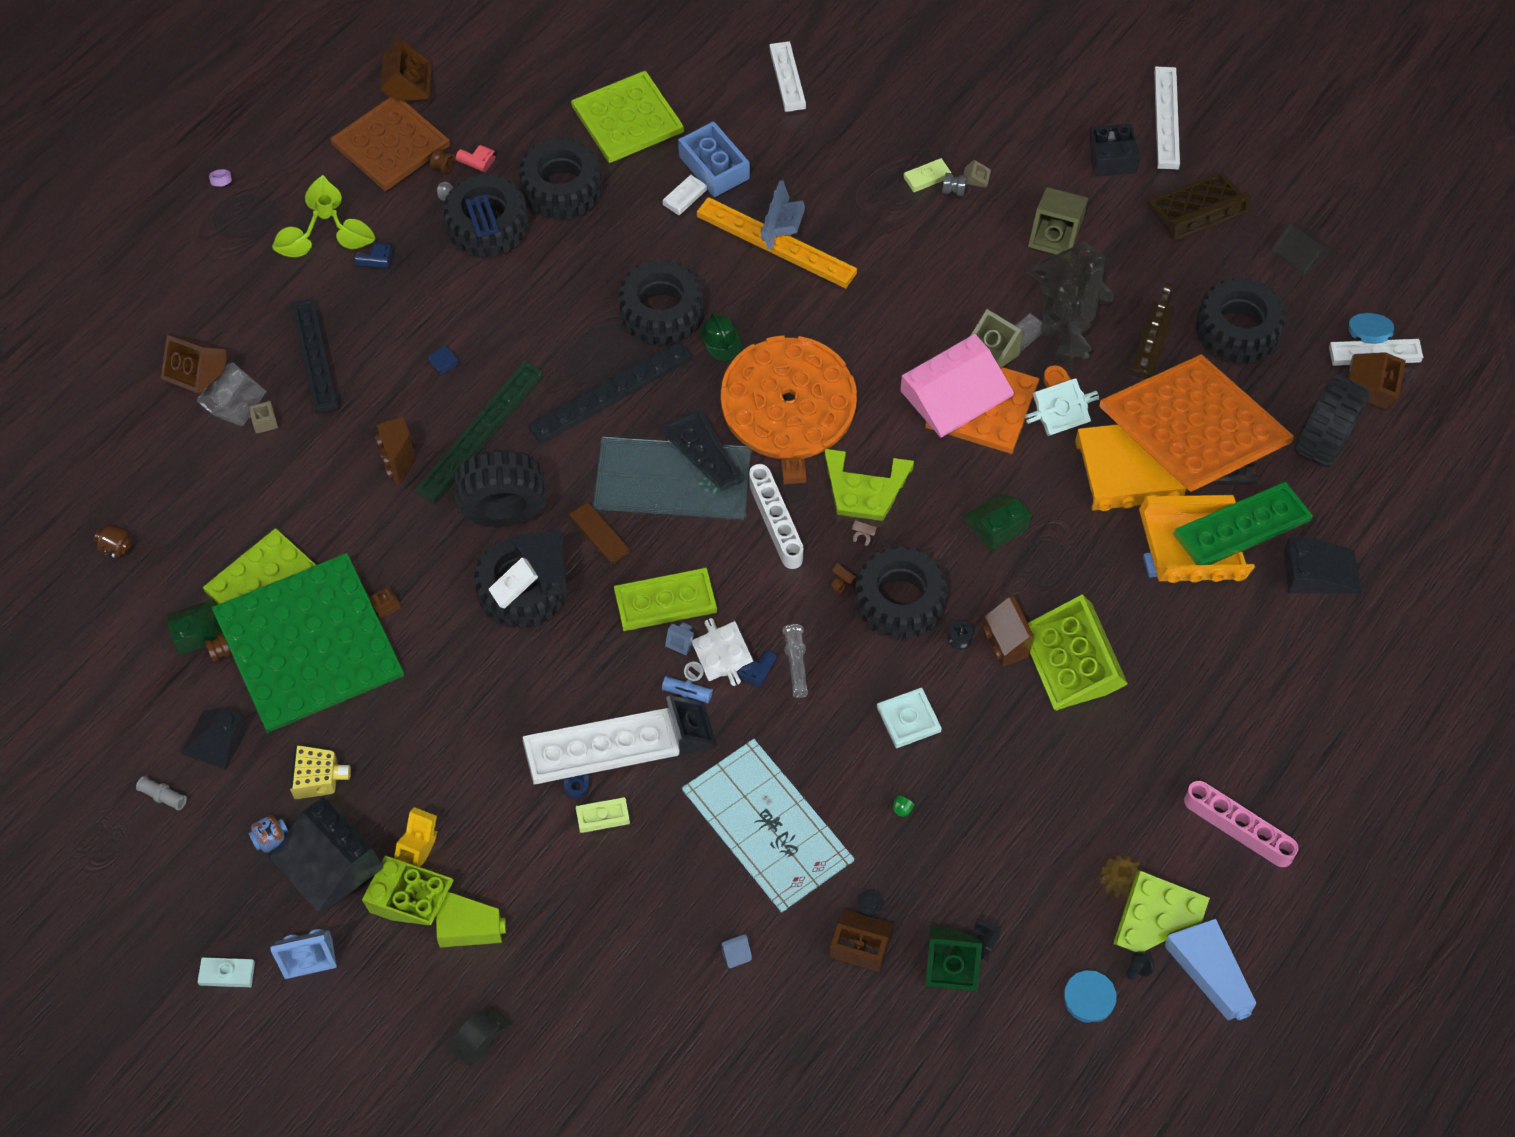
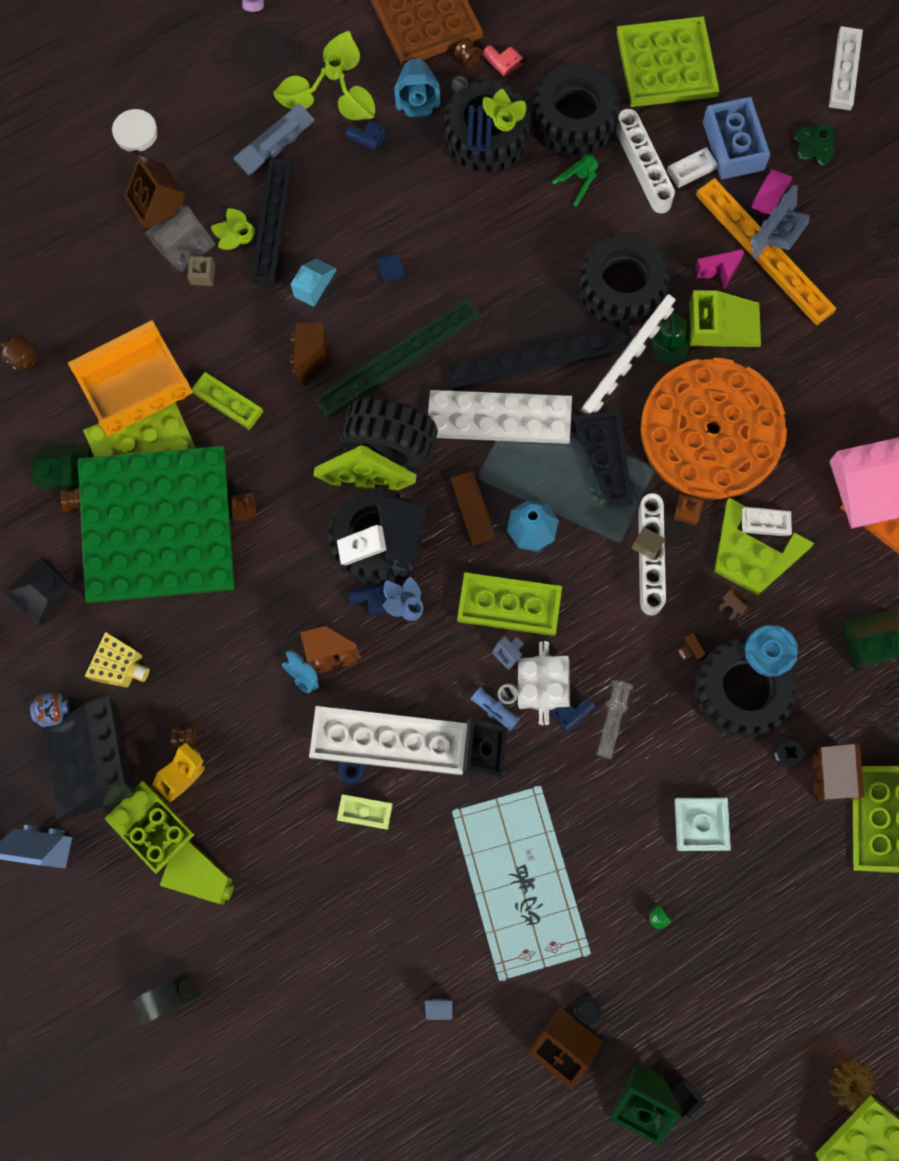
camera: 25 degrees right, 15 degrees up
(148, 319) = (134, 130): none -> white tile
(231, 527) = (130, 378): none -> light orange panel
(278, 375) = (231, 230): none -> lime plate
(288, 286) = (274, 139): none -> sand blue bracket
(332, 518) = (227, 401): none -> lime plate
(373, 394) = (312, 281): none -> medium azure slope
(404, 809) = (180, 736): none -> reddish brown wheel
(408, 204) = (417, 89): none -> dark azure cone
(484, 527) = (364, 469): none -> lime plate
(496, 717) = (303, 673): none -> dark azure plate
(498, 196) = (501, 109): none -> lime plate
(515, 687) = (327, 648): none -> dark orange slope
(538, 635) = (373, 595): none -> dark blue piece
(567, 627) = (402, 598): none -> medium blue plate
(587, 224) = (583, 169): none -> green plant
(598, 448) = (501, 416): none -> white plate
(640, 202) = (645, 170): none -> white beam
(659, 527) = (532, 525): none -> dark azure cone
(693, 353) = (635, 348): none -> white plate
(742, 264) = (721, 264): none -> dark pink slope
(761, 308) = (723, 320): none -> lime slope
(762, 193) = (771, 191): none -> dark pink slope
(768, 504) = (648, 543): none -> dark tan slope
(784, 146) = (813, 145): none -> dark green plate
(866, 457) = (766, 521): none -> white plate
(909, 549) = (771, 650): none -> dark azure tile

